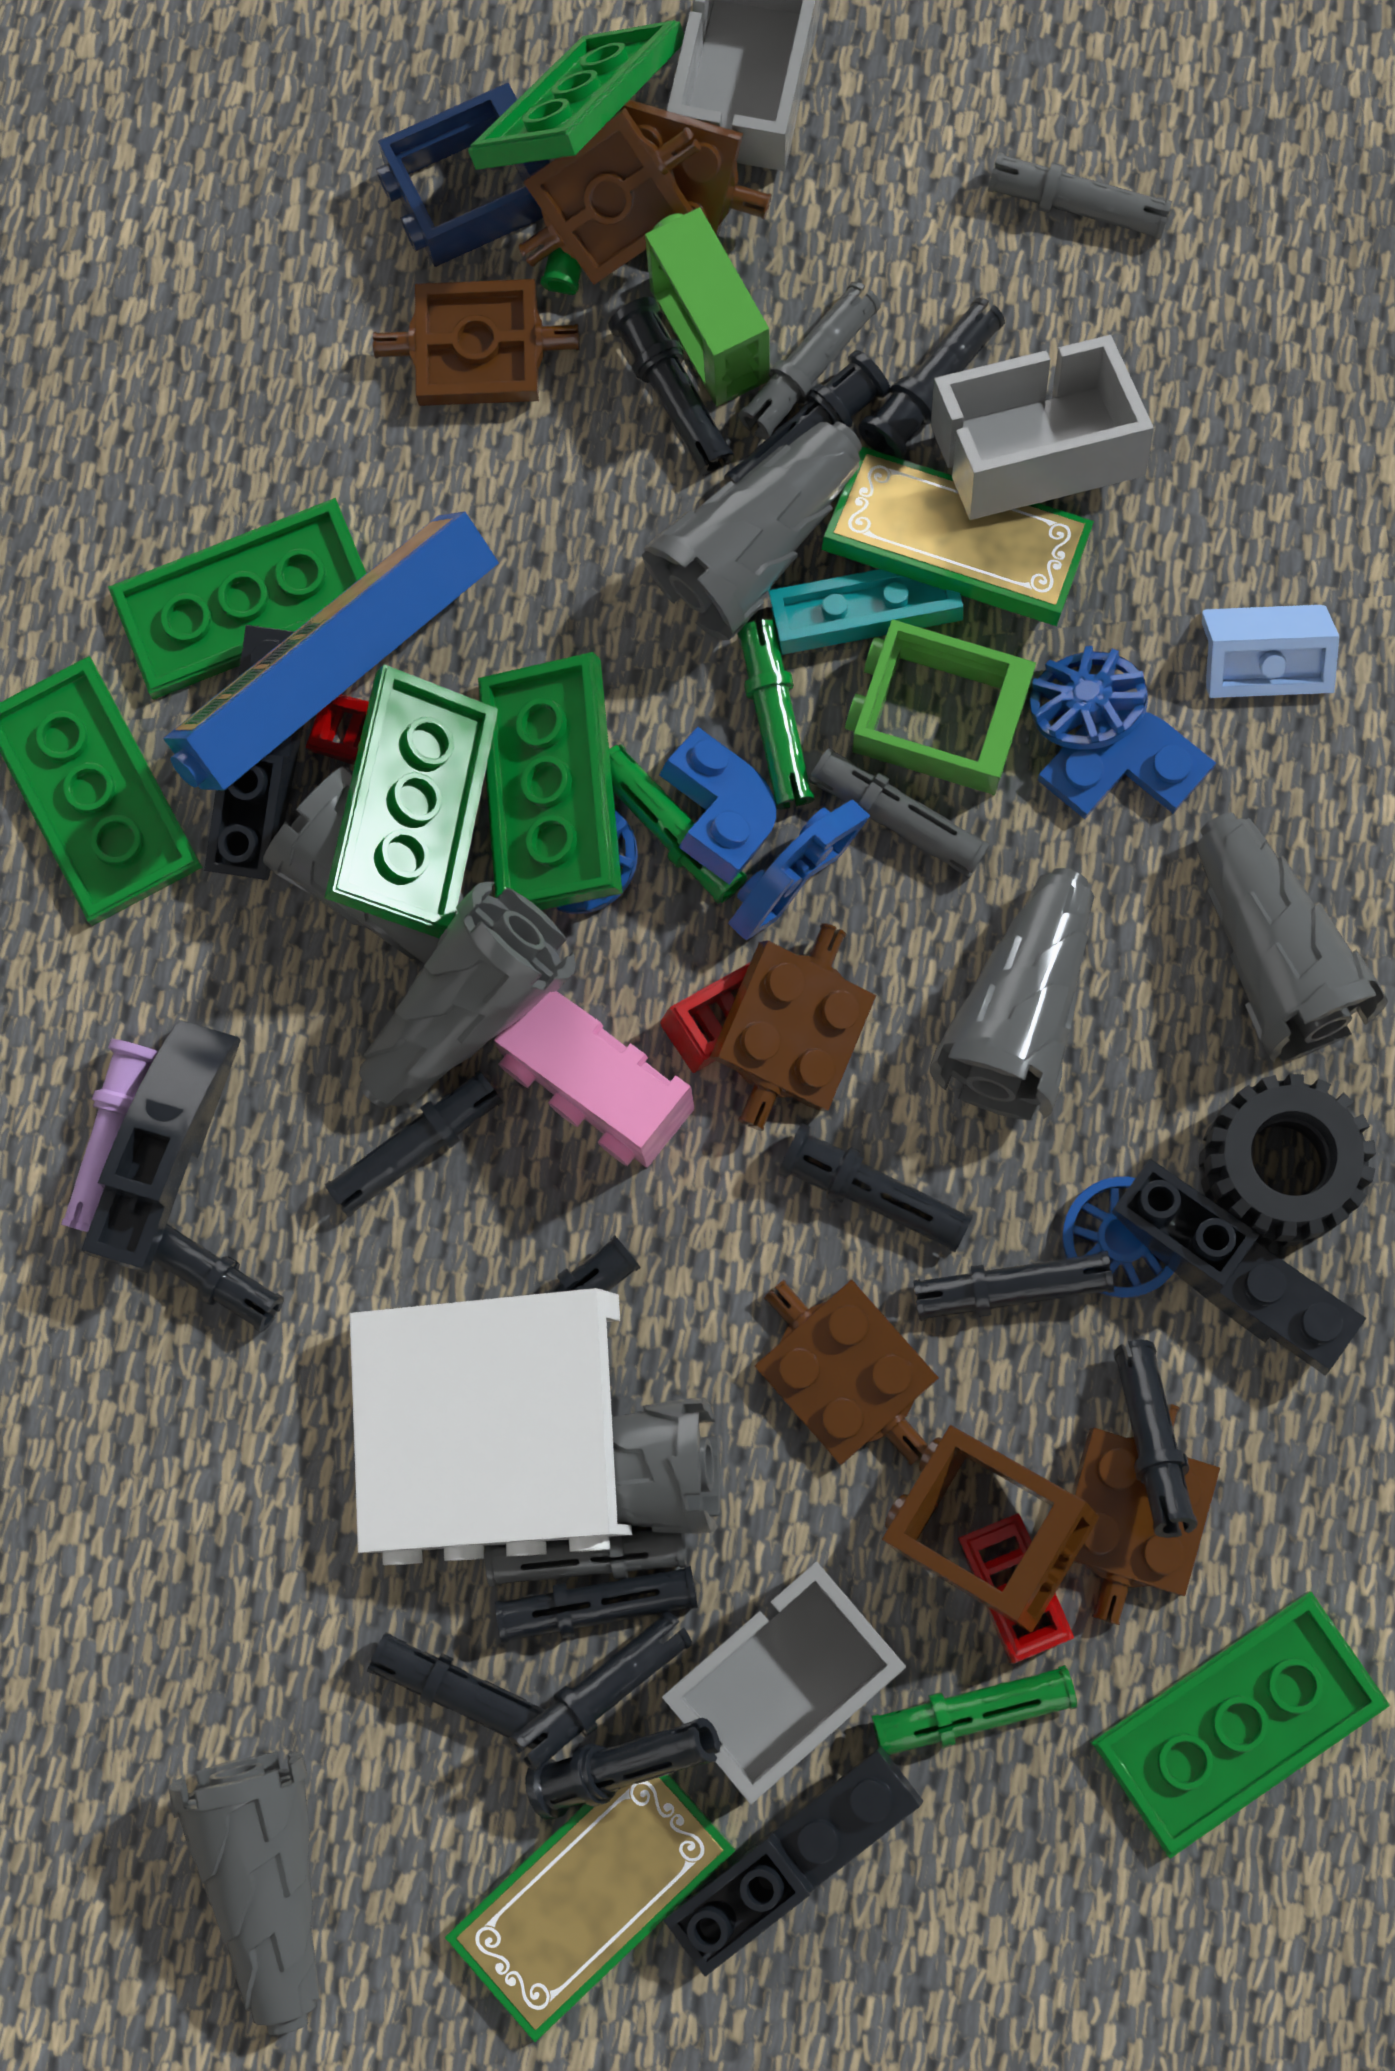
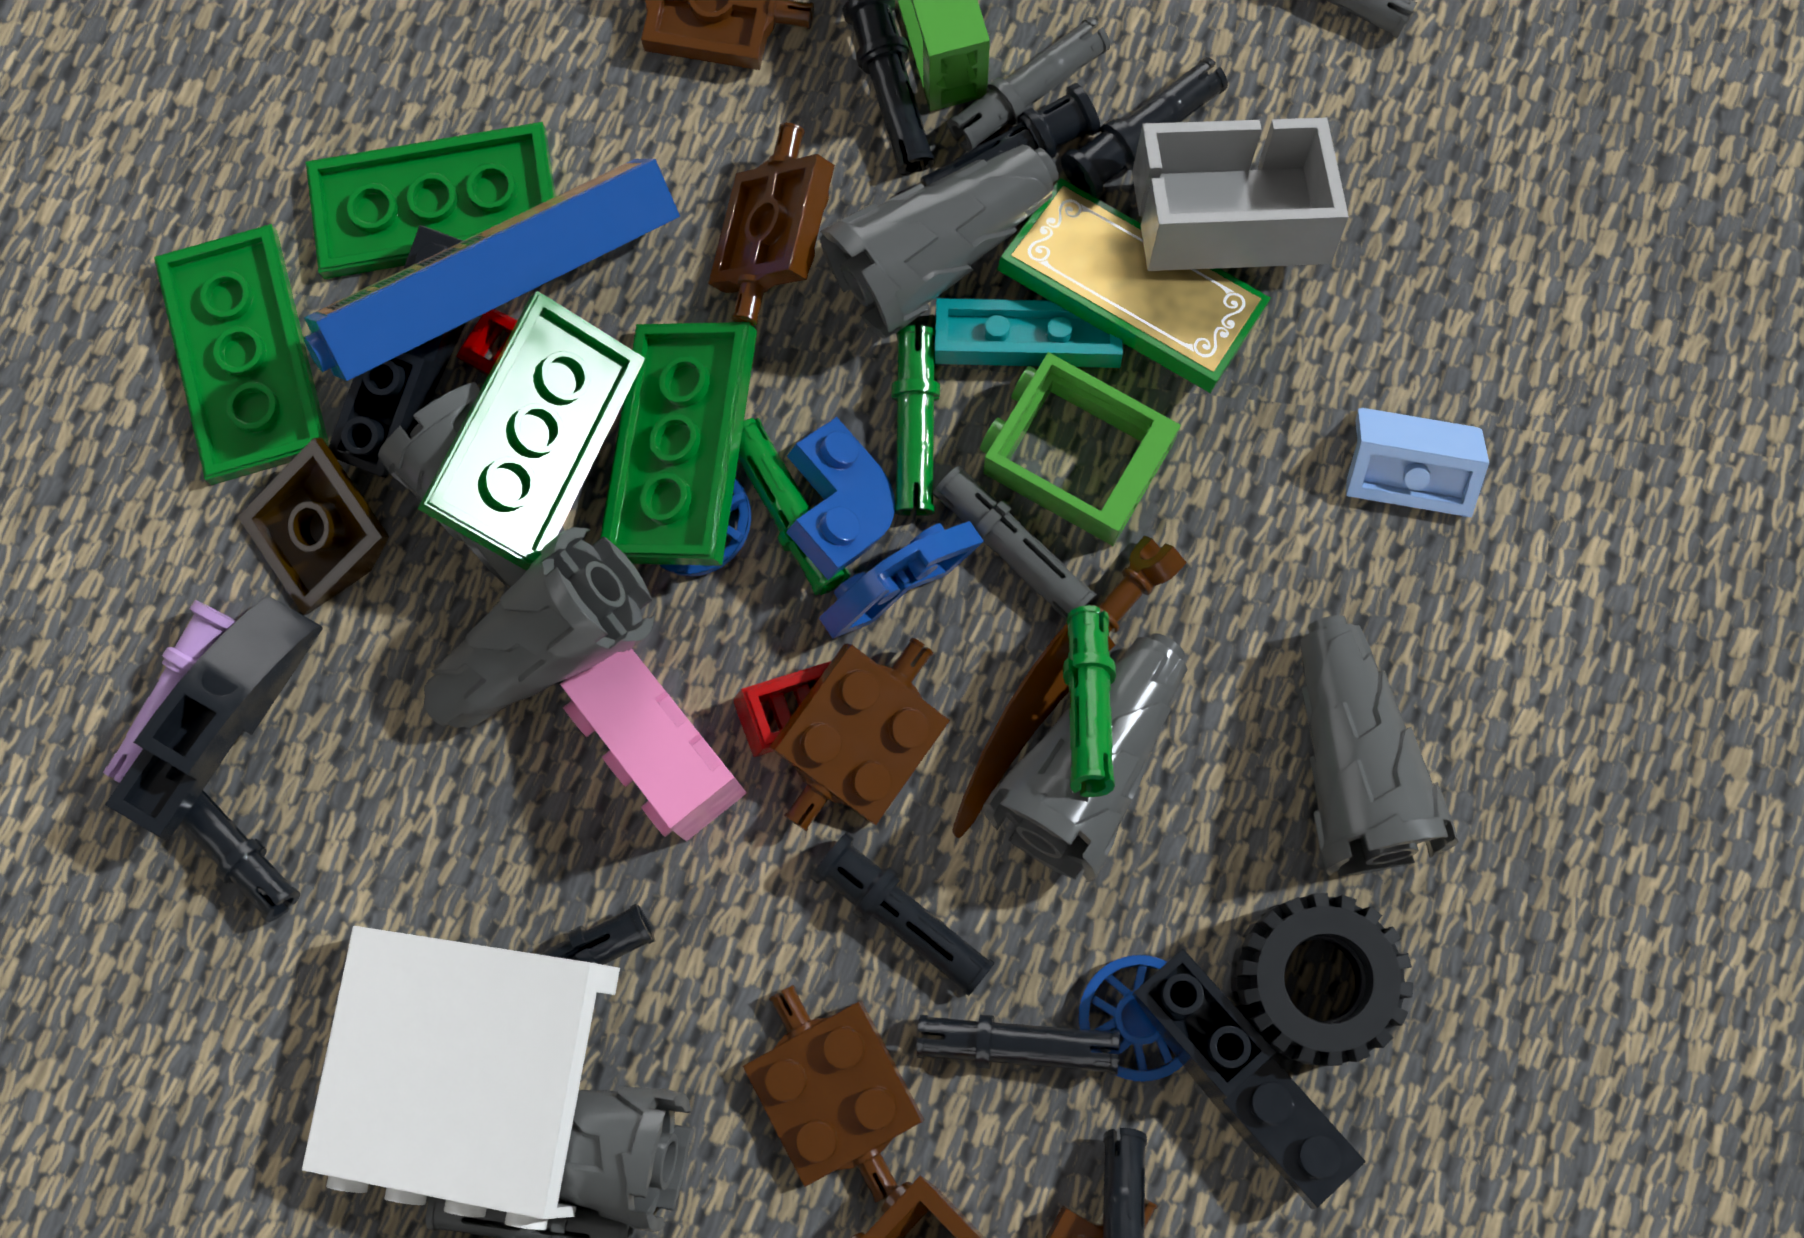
camera: 10 degrees right, 0 degrees up
(210, 943) = (314, 528): none -> dark brown slope
(414, 1143) = (487, 756): black pin -> none
(591, 551) = (771, 224): none -> reddish brown plate
(972, 921) = (1045, 684): none -> reddish brown sword
(1005, 921) = (1089, 676): none -> green pin
(1088, 699) = (1226, 471): blue wheel -> none
(1150, 756) = (1254, 525): blue plate -> none

